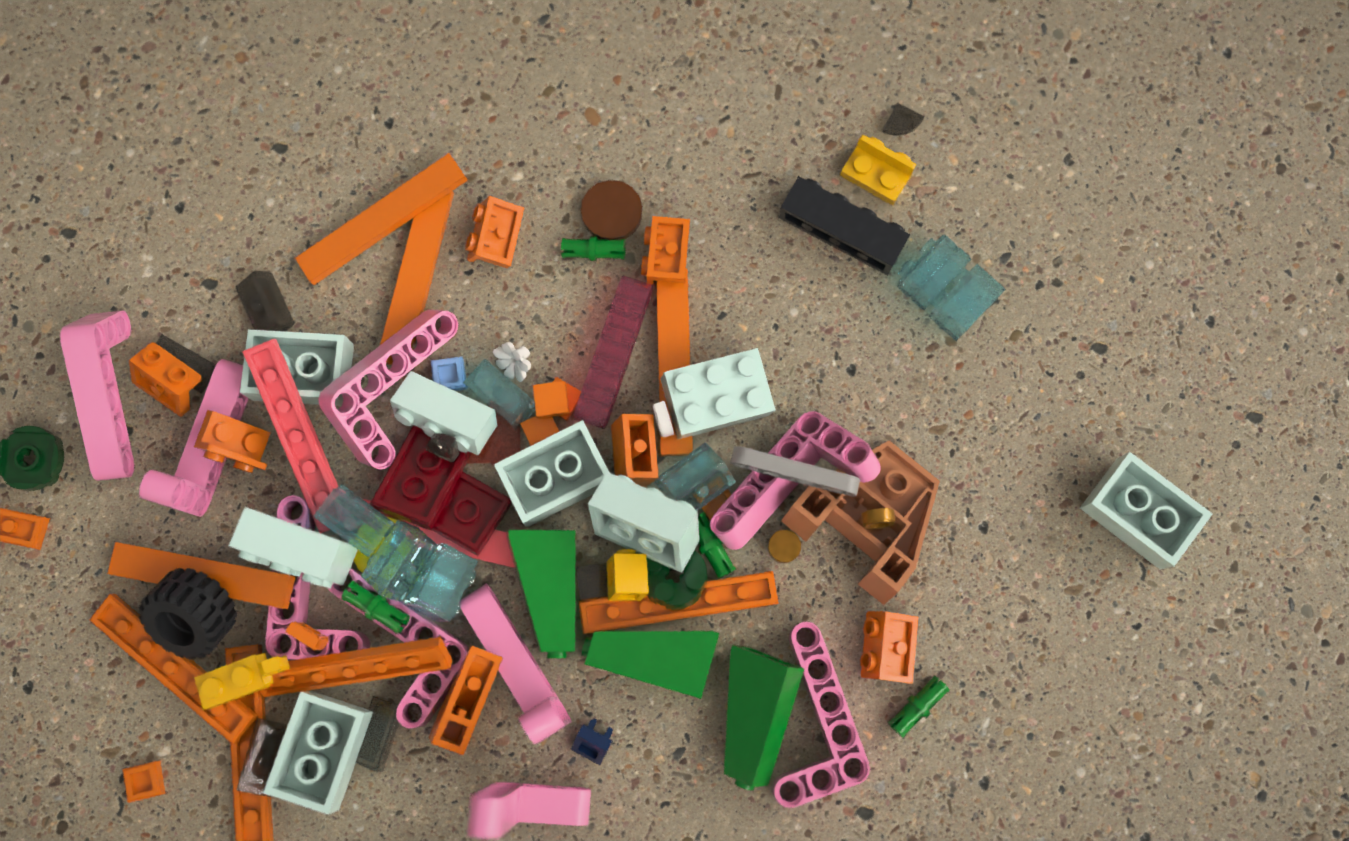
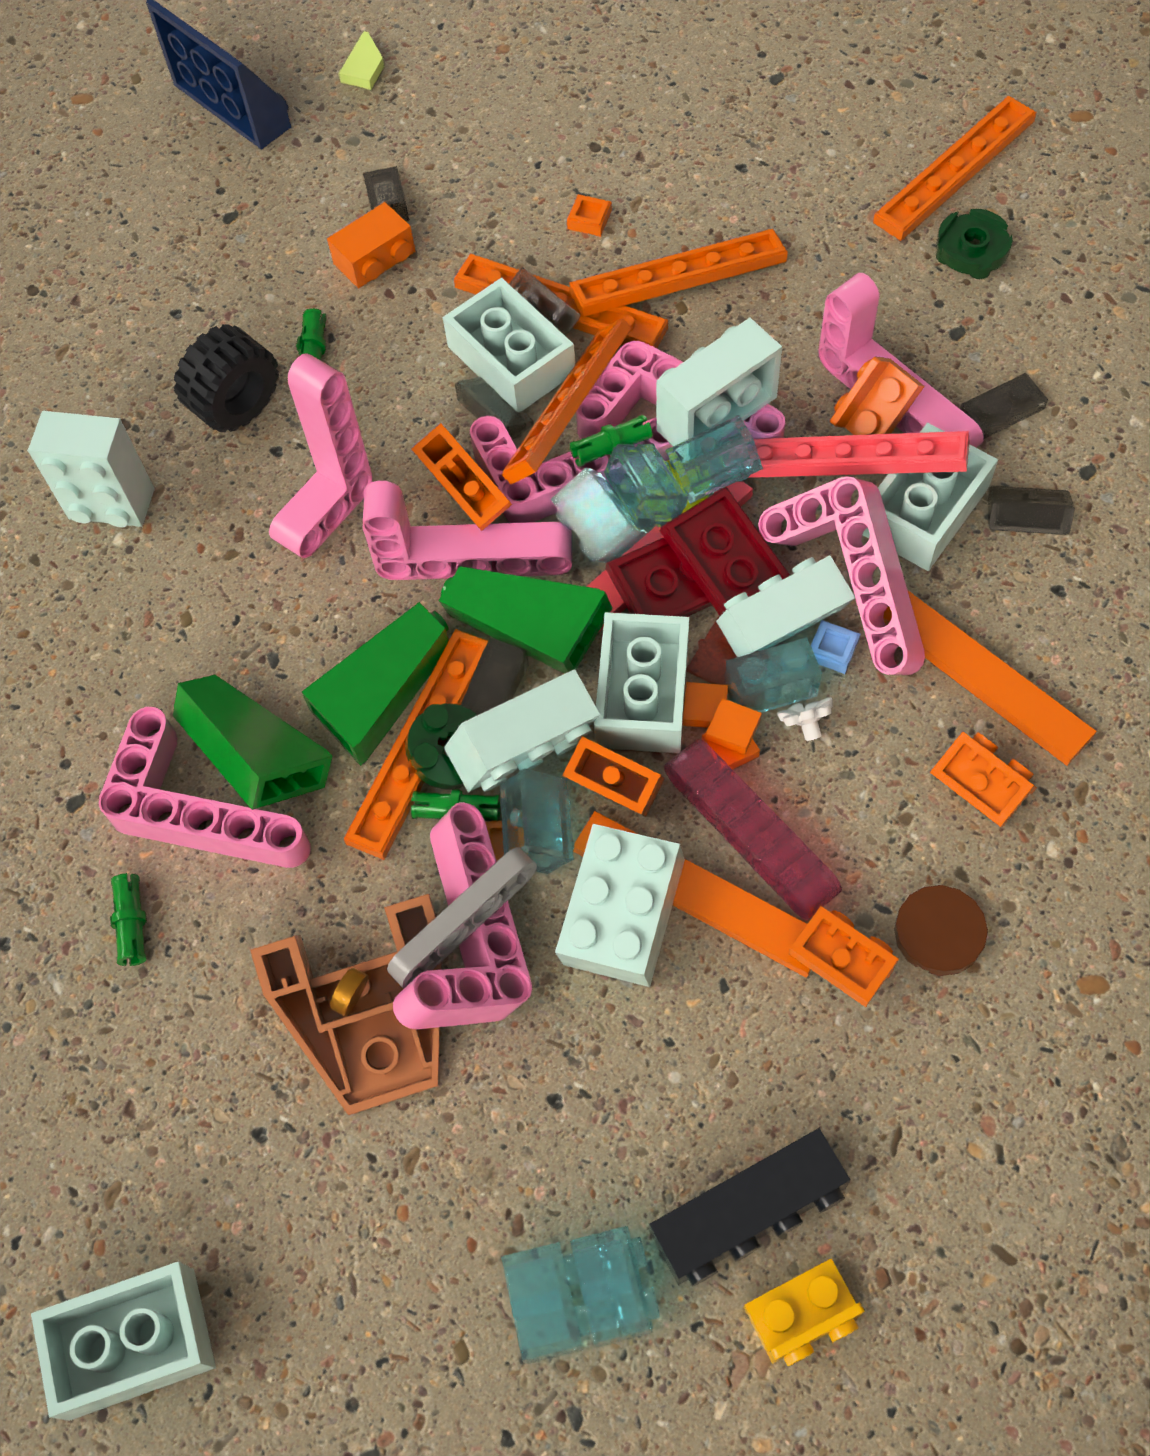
camera: 125 degrees right, 15 degrees down
(96, 391) = (1049, 300): bright pink beam -> none
(164, 377) = (994, 378): orange bracket -> none
(187, 613) = (717, 289): black tyre -> none
(238, 679) = (623, 304): yellow hinge -> none
(240, 581) = (771, 307): orange tile -> none
(307, 635) = (623, 370): orange tile -> none
(381, 219) = (1072, 669): orange tile -> none
(443, 446) = (743, 582): clear smoke tile -> none
(591, 743) = (340, 578): dark blue tile -> none
(593, 248) = (899, 877): green pin -> none
(627, 576) = (477, 687): yellow brick -> none
(663, 419) = (629, 821): white tile -> none
(784, 546) = (399, 883): pearl gold tile -> none
(889, 646) = (209, 926): orange bracket -> none
(902, 121) = (861, 1404): clear smoke tile -> none

